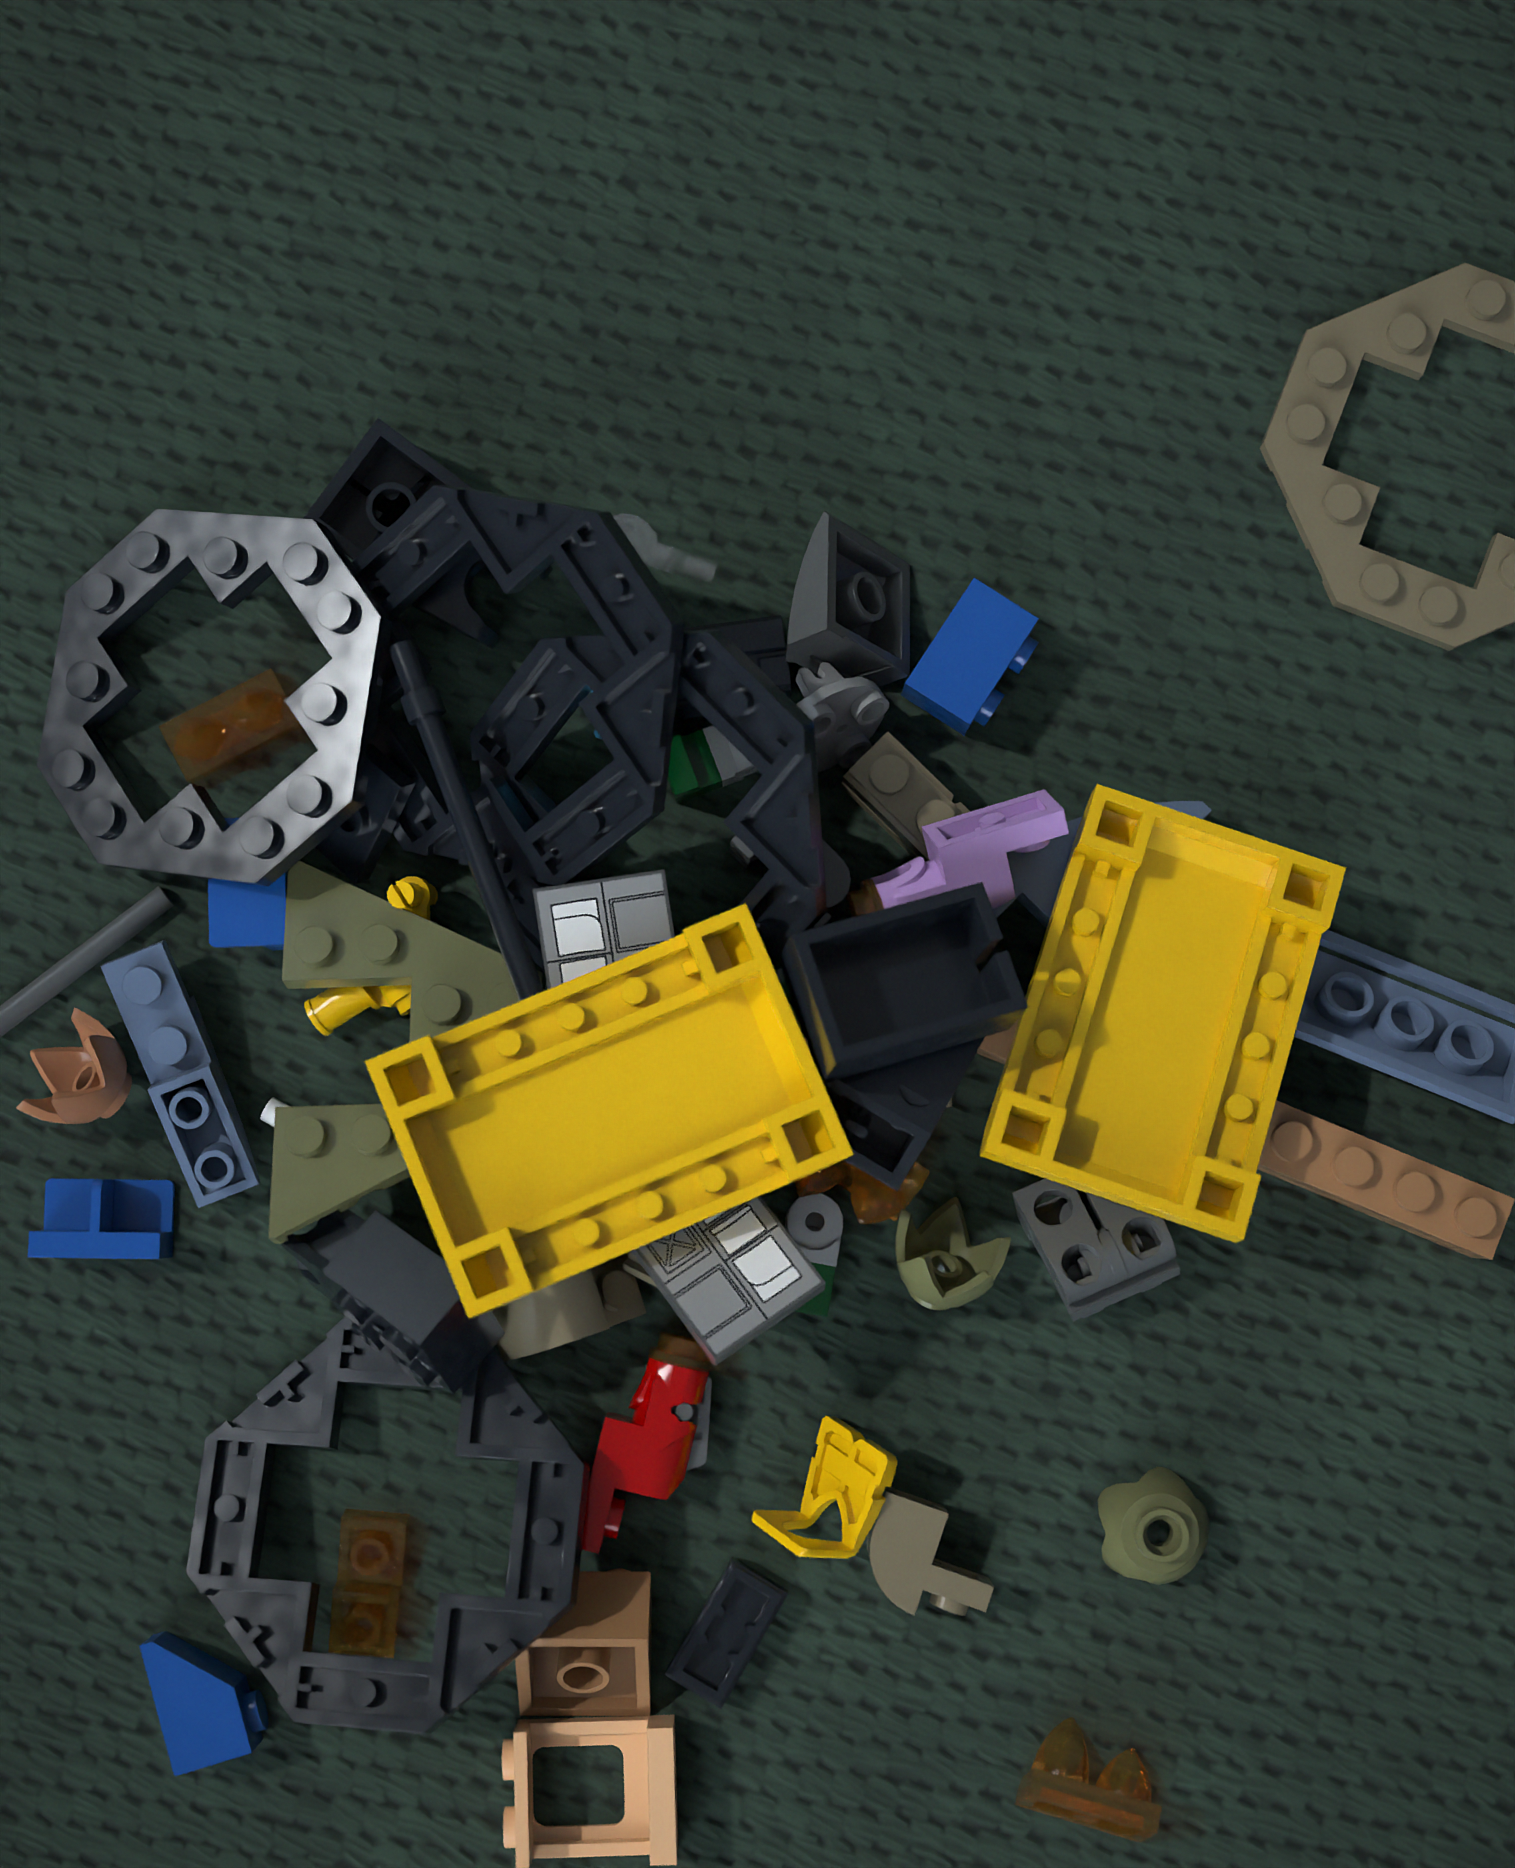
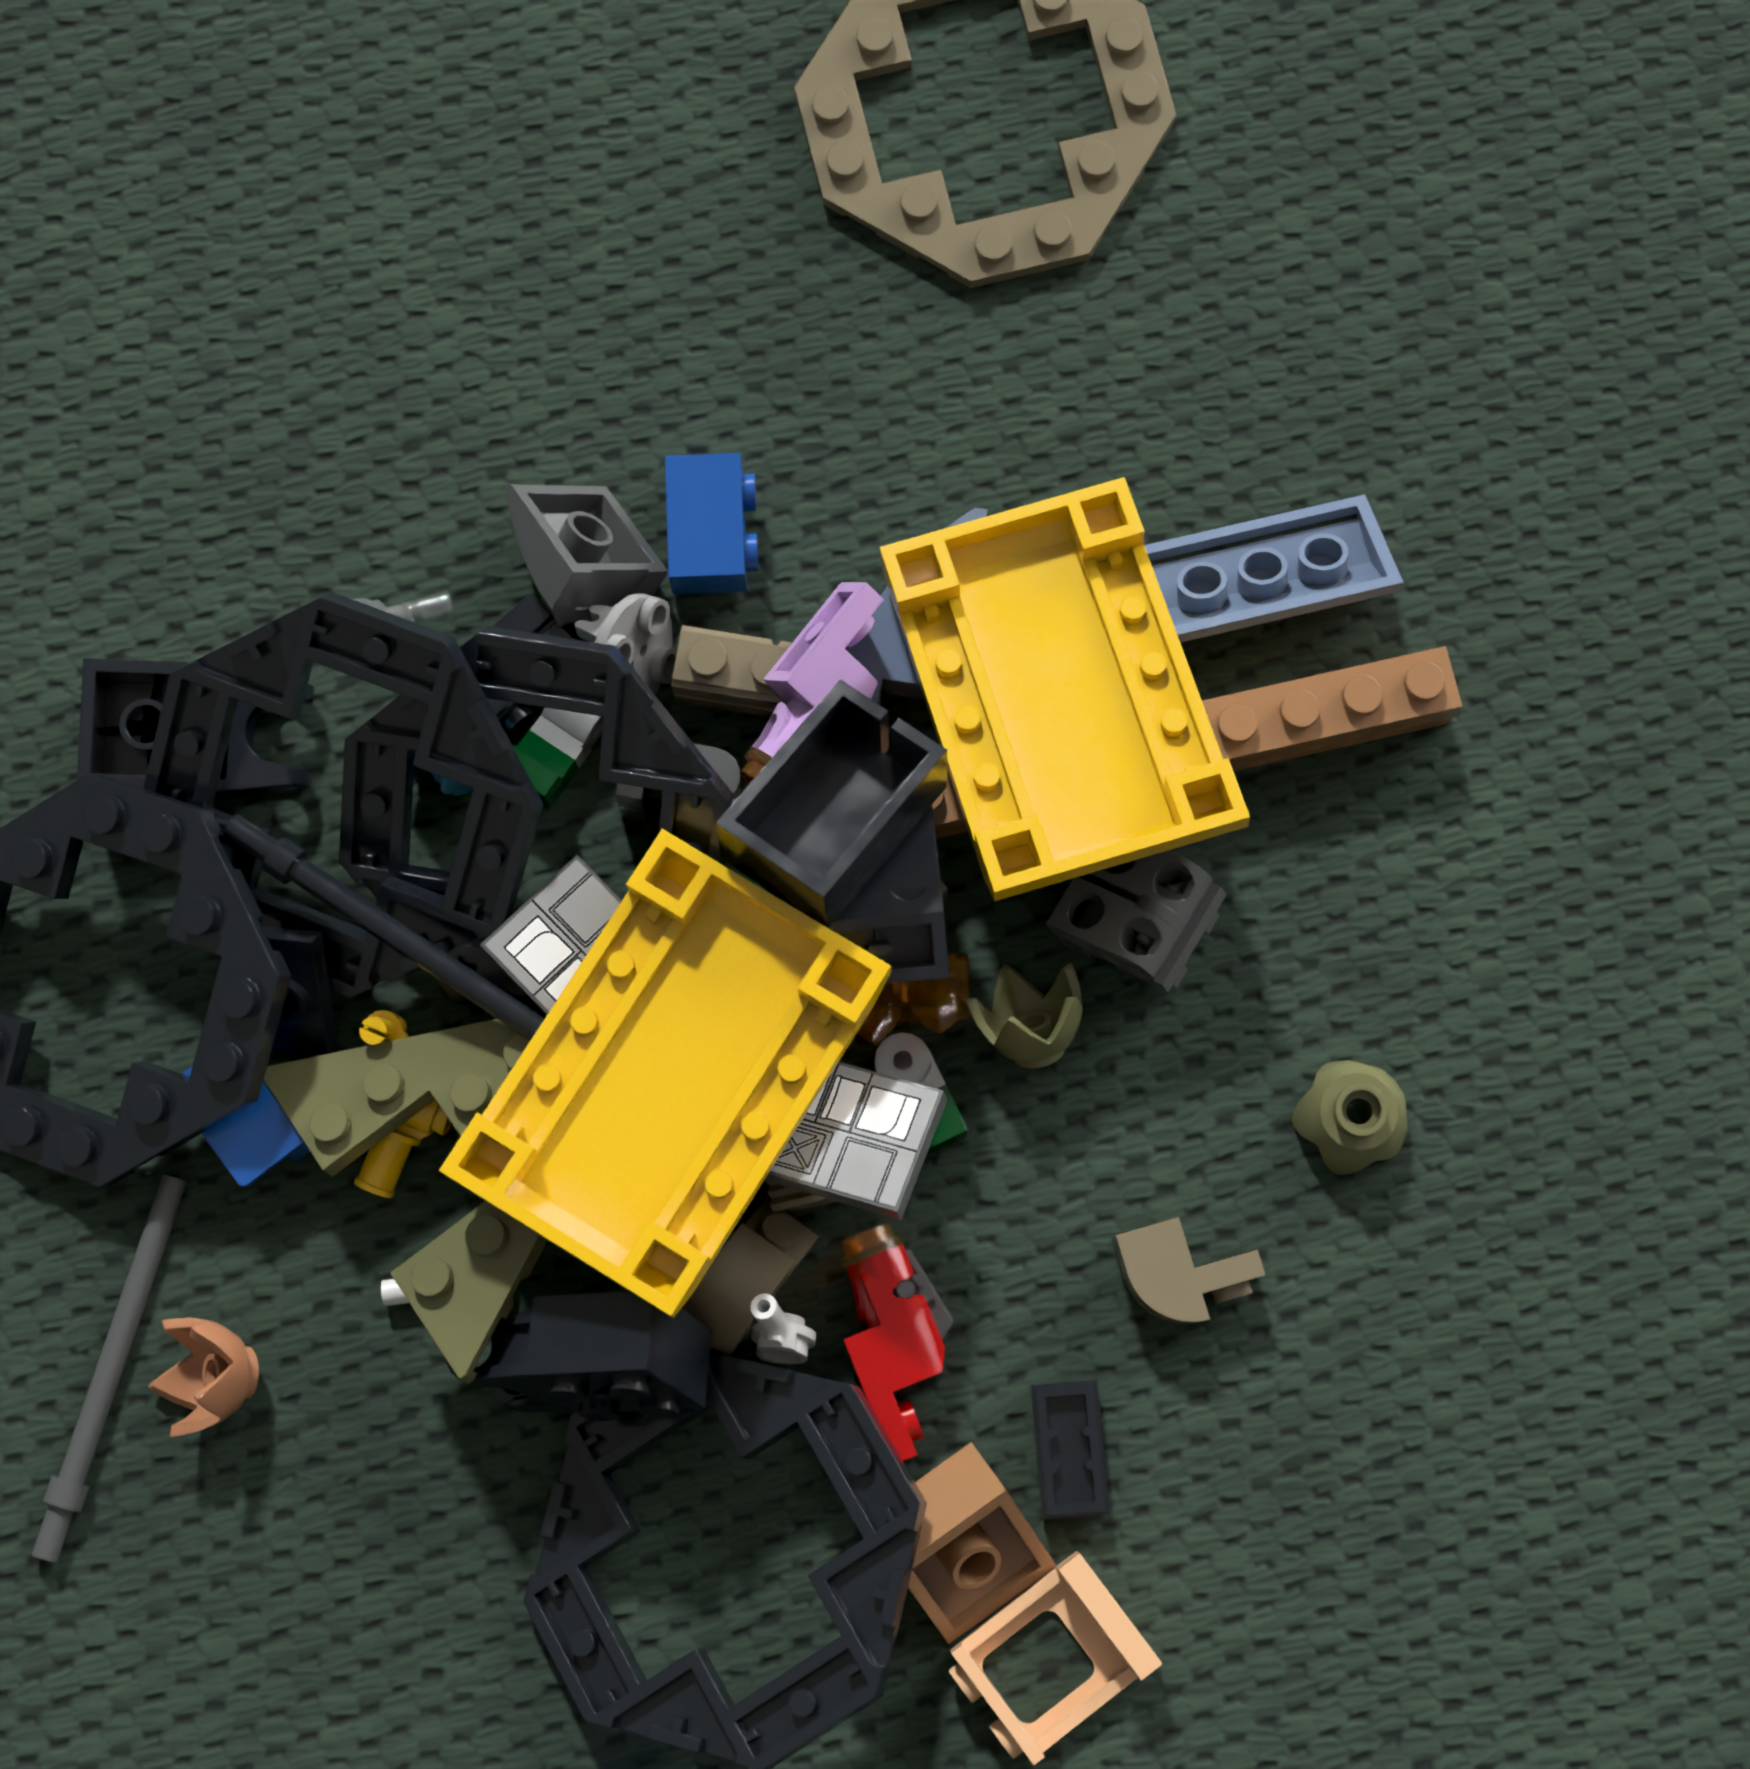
camera: 30 degrees left, 5 degrees down
(106, 1219) = (310, 1481): blue panel -> none
(182, 1073) = (291, 1311): sand blue slope -> none
(230, 726) = (132, 1000): clear orange tile -> none
(369, 1583) = (743, 1620): clear orange slope -> none
(558, 1373) = (779, 1335): none -> white plate
(842, 1470) = (1076, 1244): yellow piece -> none
(1061, 1787) = (1432, 1380): clear orange tile -> none

